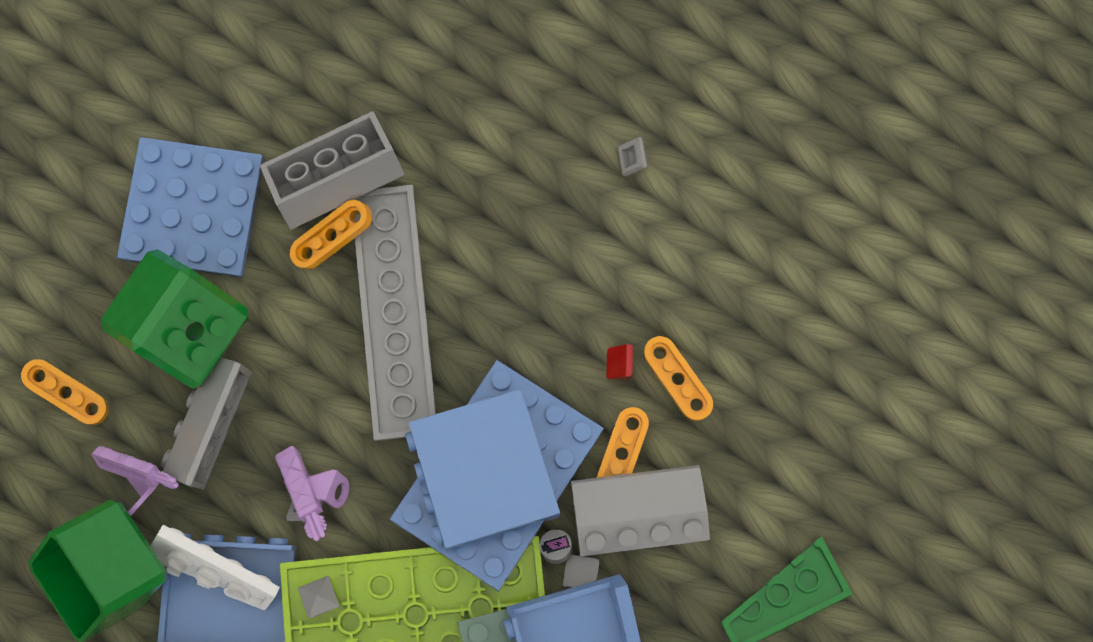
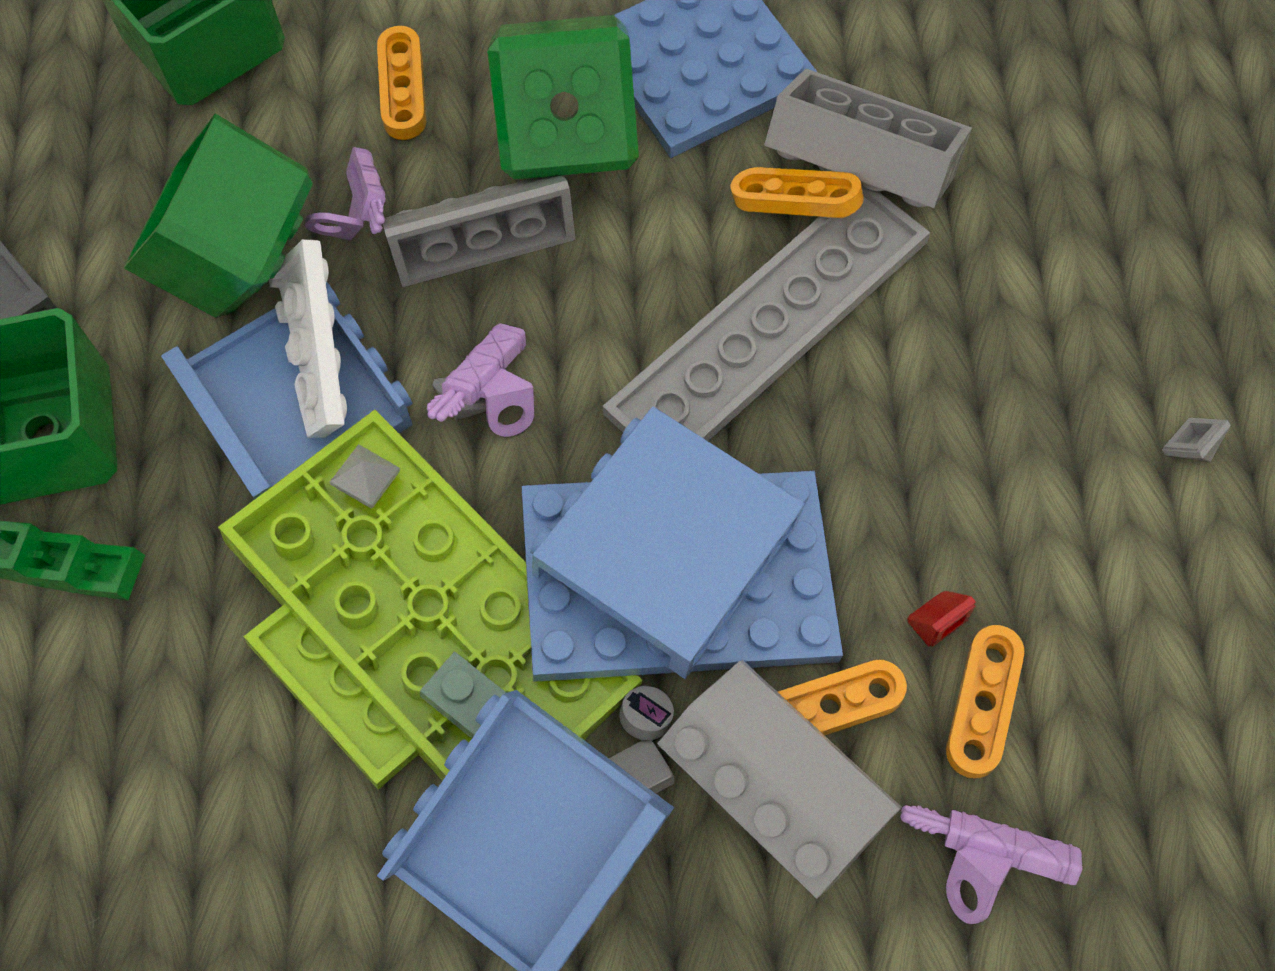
camera: 55 degrees right, 15 degrees down
(747, 439) = (988, 853): none -> lavender piece

